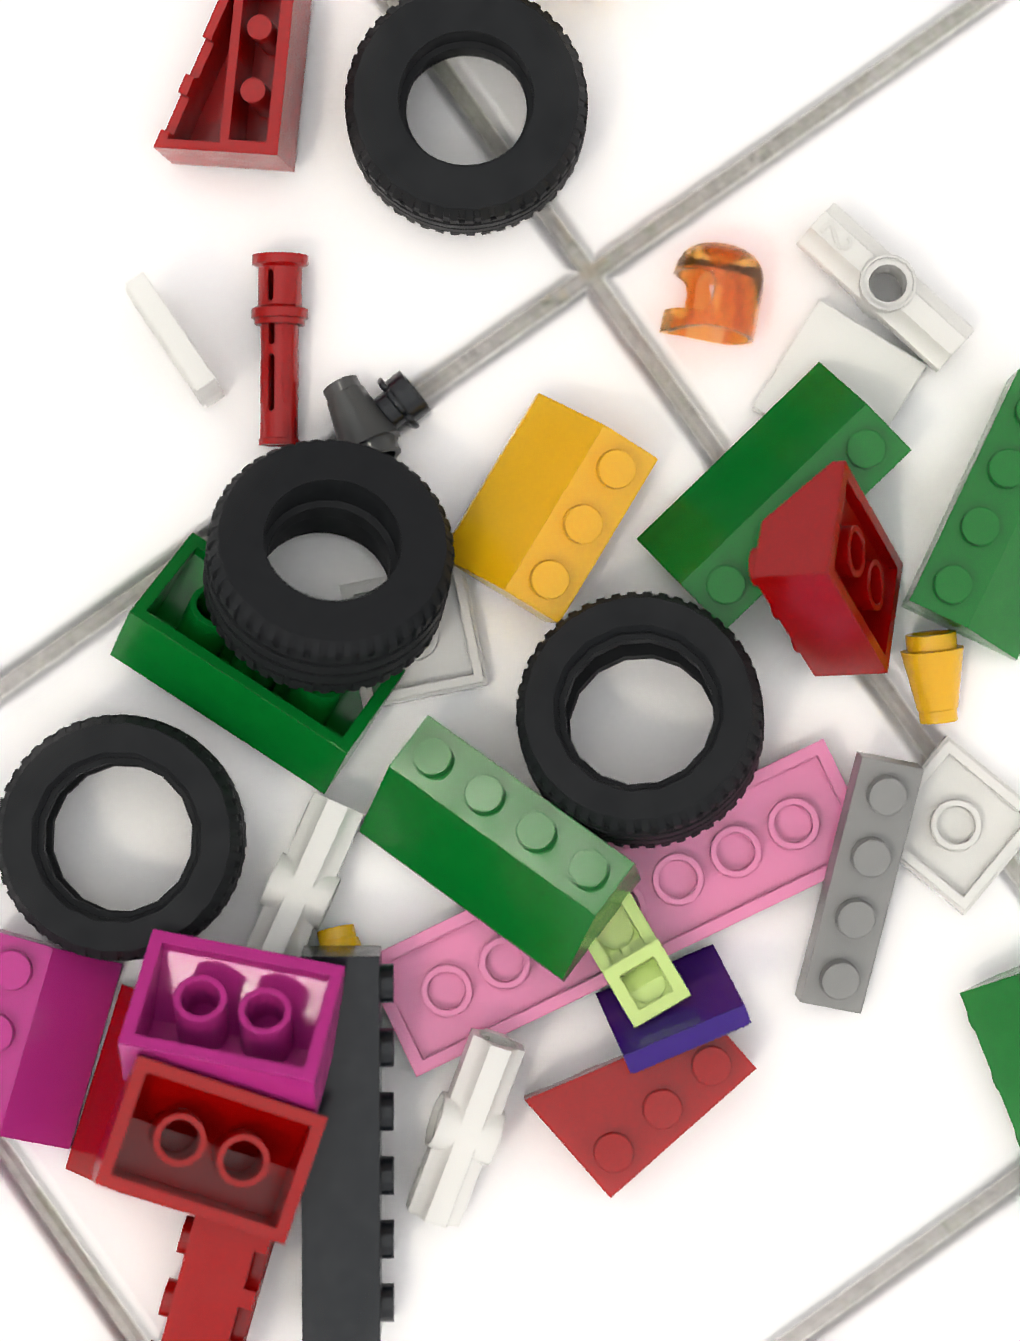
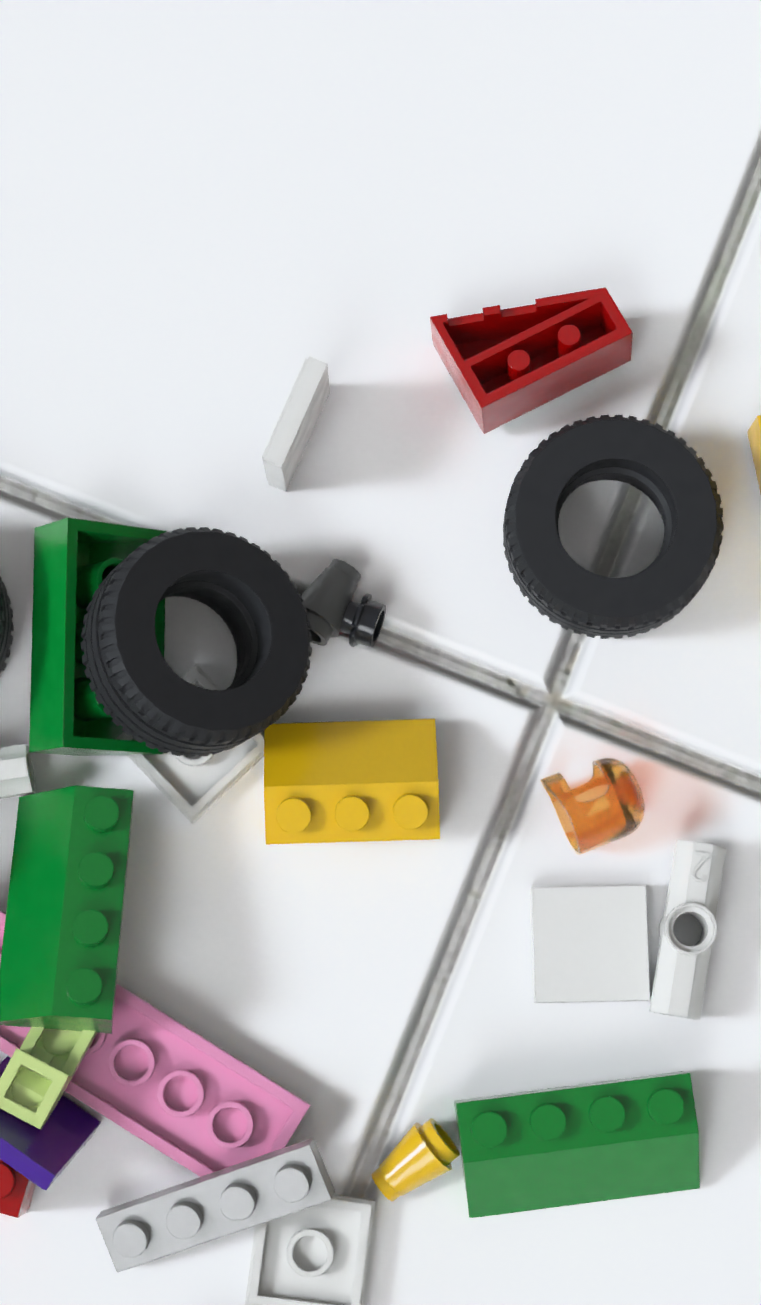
camera: 60 degrees right, 5 degrees down
(279, 316) = (366, 493): red pin -> none
(637, 629) = (243, 872): black tyre -> none
(718, 520) = (470, 946): green slope -> none
(830, 575) = (434, 1028): red slope -> none

